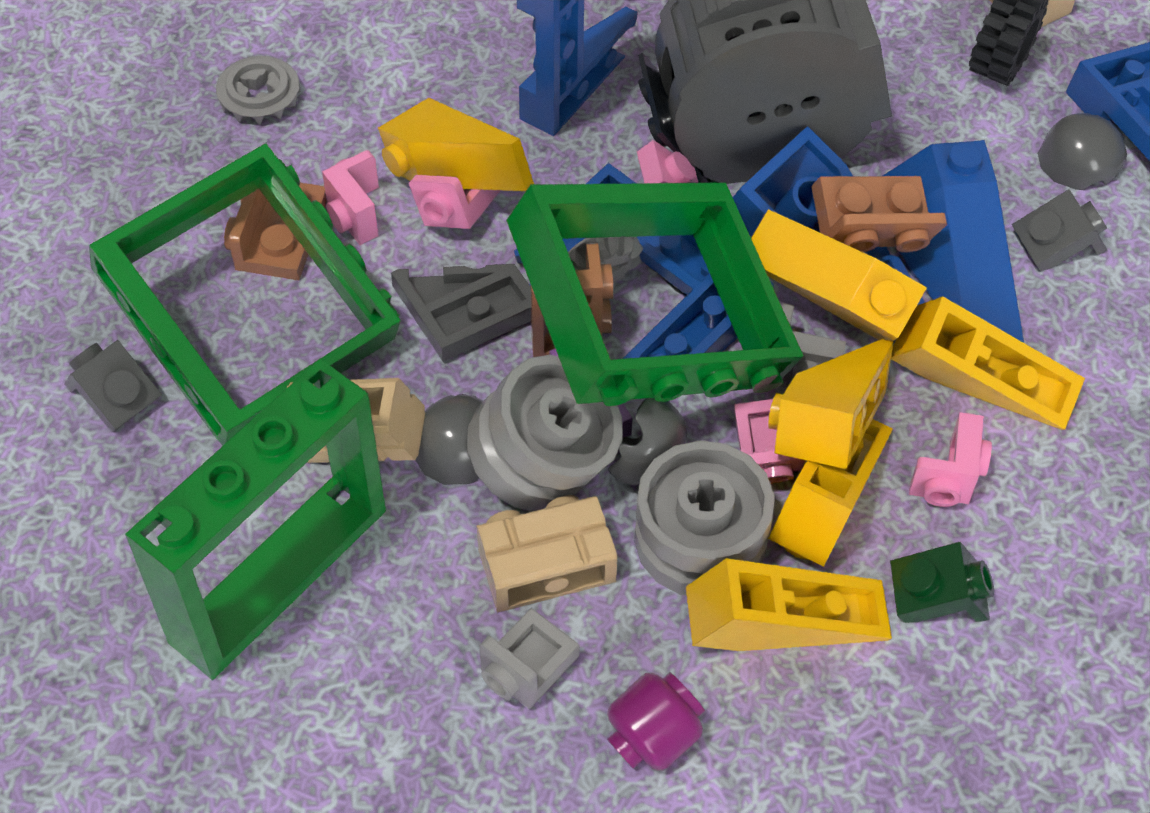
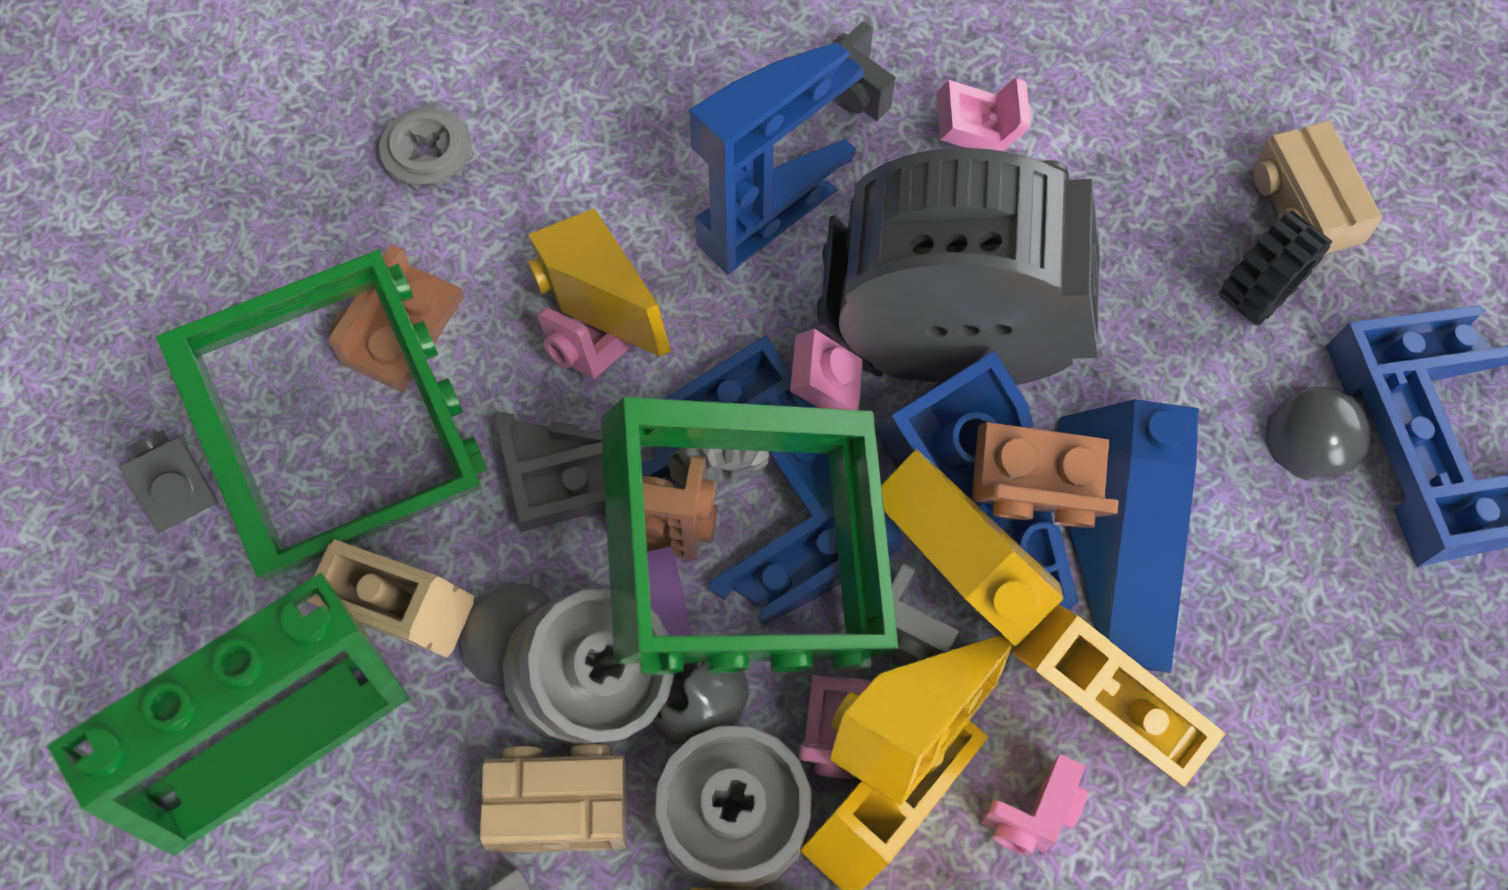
camera: 15 degrees right, 10 degrees up
(347, 196) = (476, 291): bright pink bracket -> none
(1060, 230) = (1259, 533): dark grey bracket -> none

